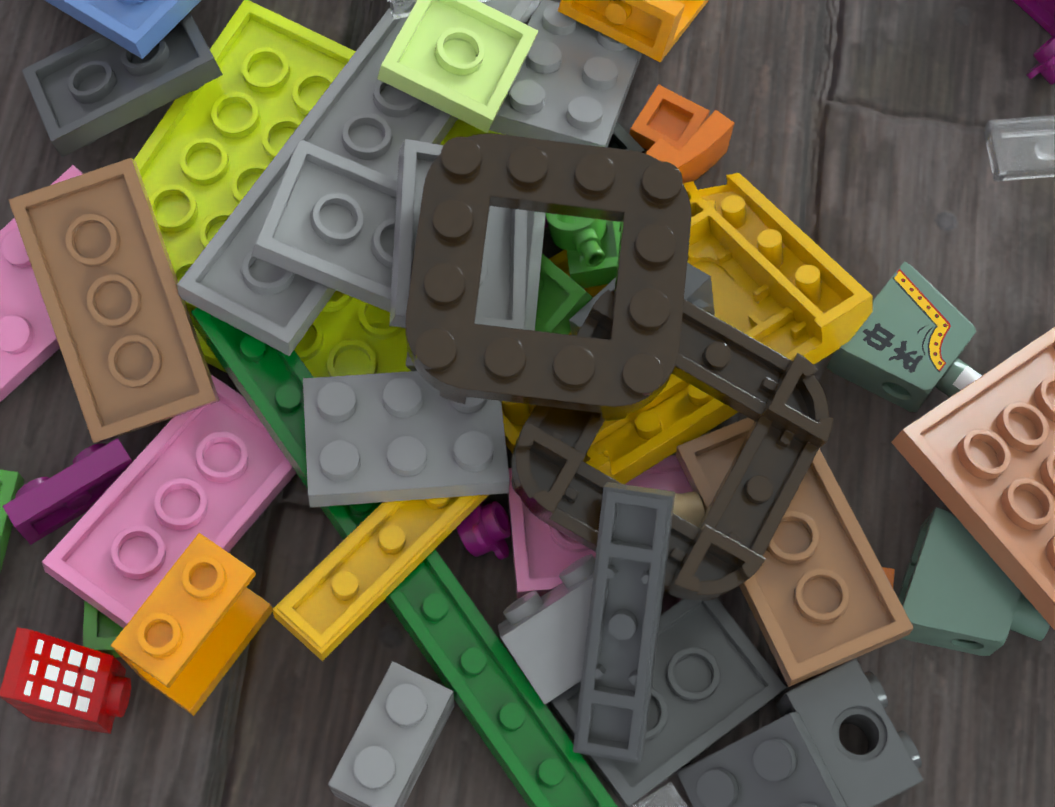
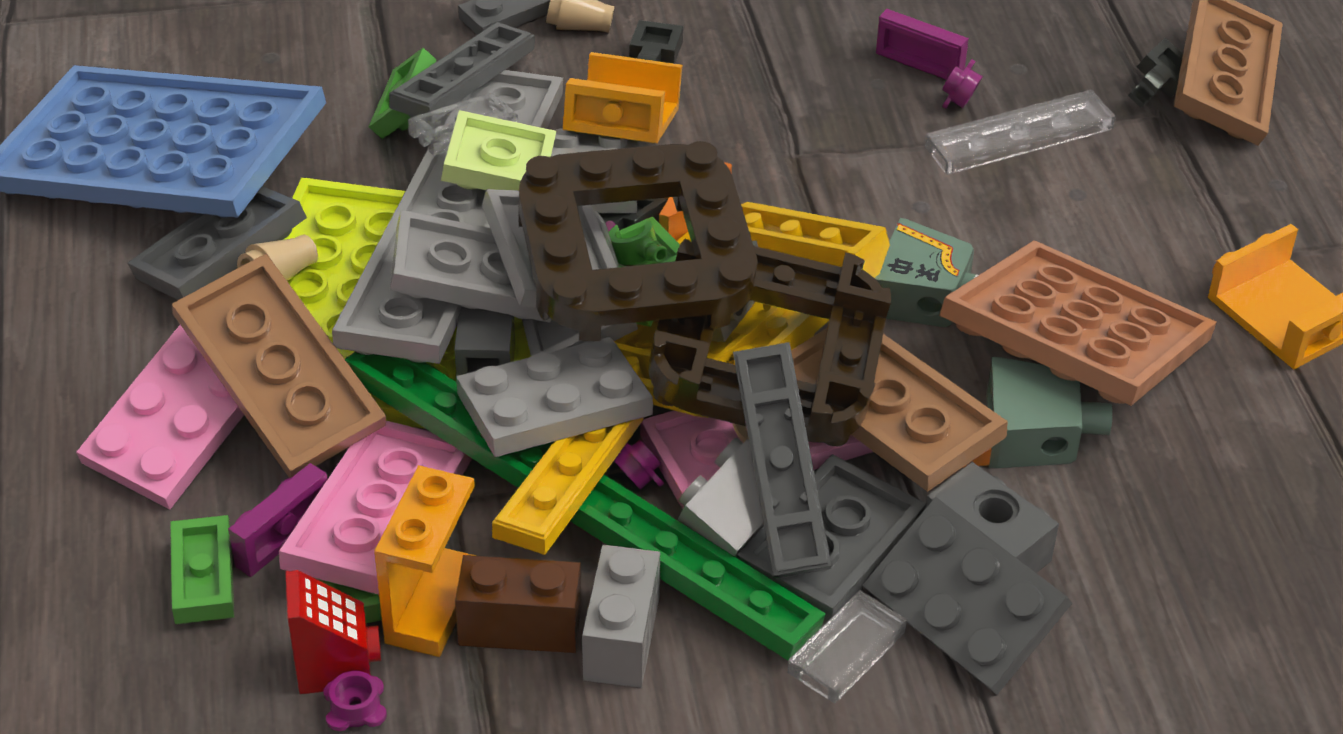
camera: 15 degrees left, 25 degrees down
(66, 746) = (354, 688): none -> magenta plate
(169, 131) = (287, 254): none -> tan cone
(287, 692) = (518, 604): none -> reddish brown brick
(354, 335) = (483, 340): none -> dark grey brick

